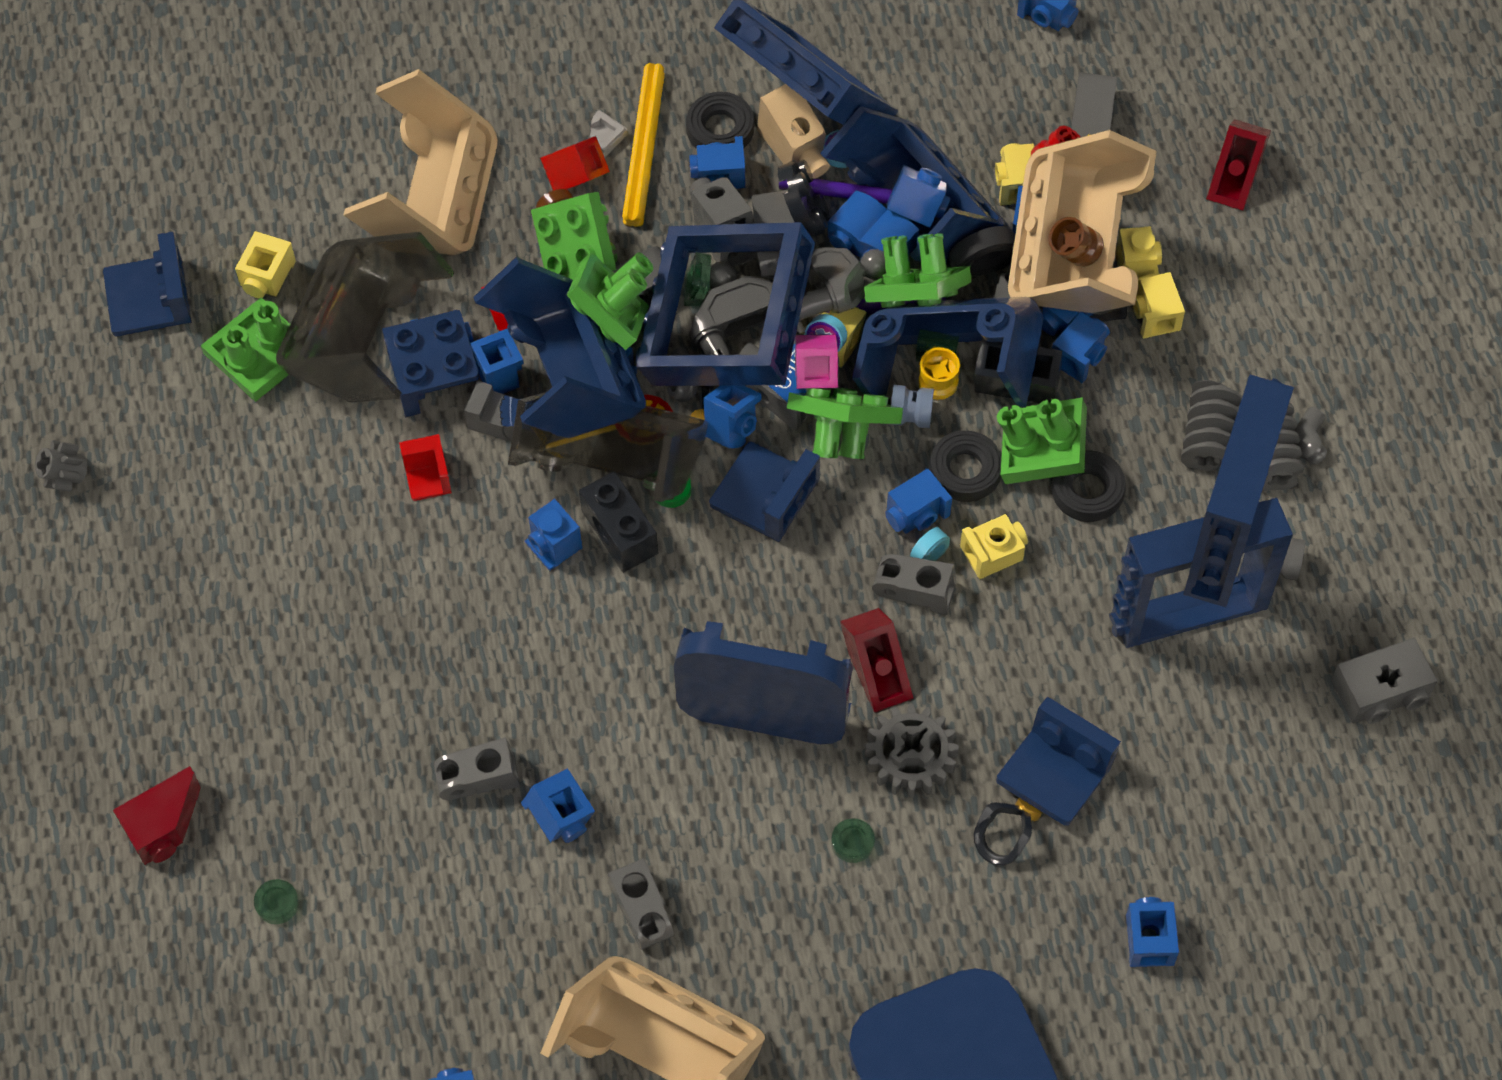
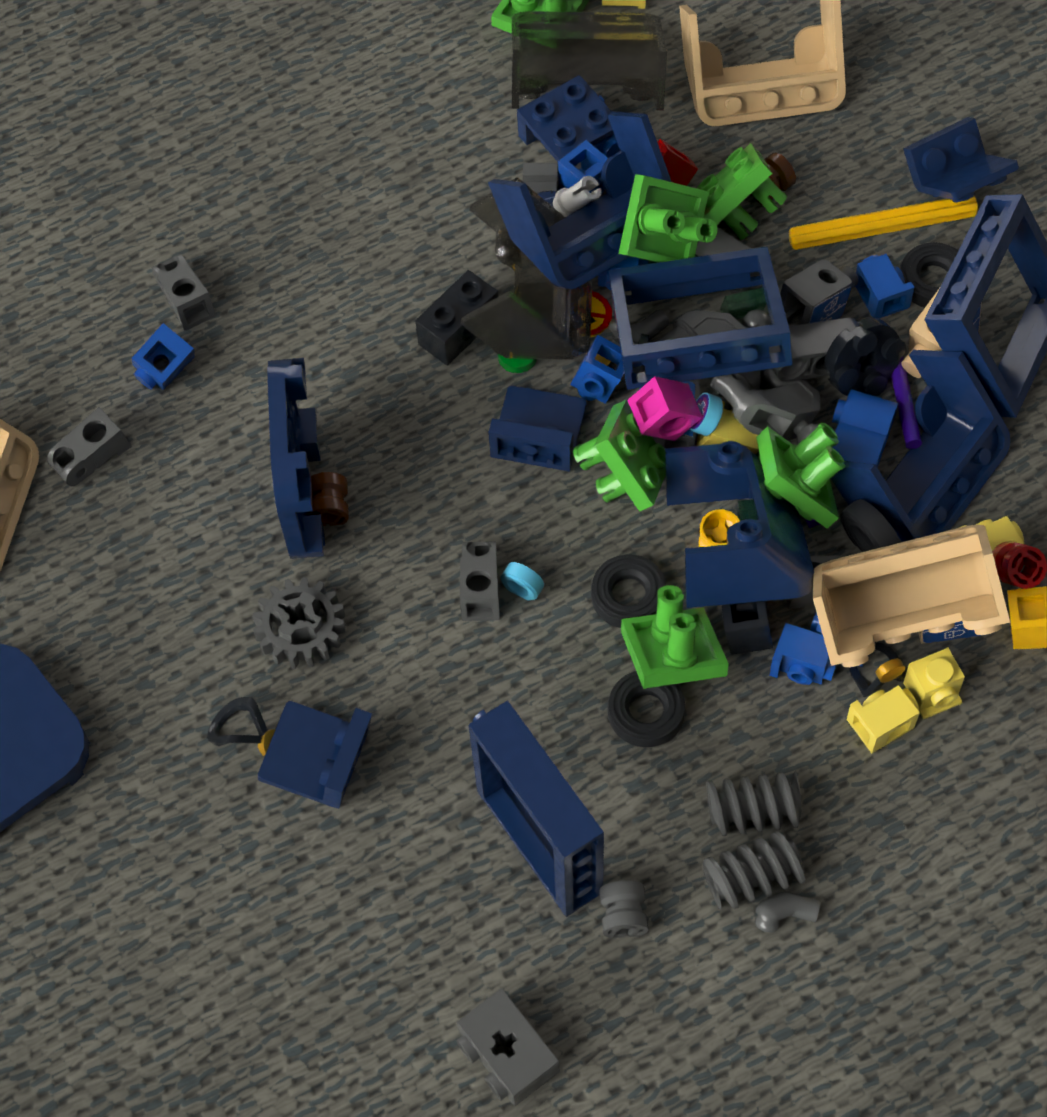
camera: 75 degrees right, 0 degrees up
(160, 816) = (79, 87): dark red slope -> none
(276, 901) = (31, 192): clear green tile -> none
(425, 467) = (470, 165): red panel -> none
(532, 372) = (577, 196): none -> white pin
(553, 535) = (424, 268): blue brick -> none
(575, 164) = (832, 173): red panel -> none
(608, 131) = (881, 190): light grey tile -> none
(622, 64) = (955, 163): none -> dark blue bracket
(852, 840) = (199, 602): clear green tile -> none
(877, 658) = (386, 565): dark red slope -> none
(915, 405) = (673, 521): sand blue wheel -> none
(917, 503) = (565, 556): blue brick -> none
(919, 195) = (910, 455): blue brick -> none
(991, 556) = (548, 650): light yellow brick -> none
(1075, 241) = (892, 598): reddish brown wheel -> none
(1152, 950) = (151, 873): blue brick -> none
(1237, 490) = (541, 721): dark blue window -> none

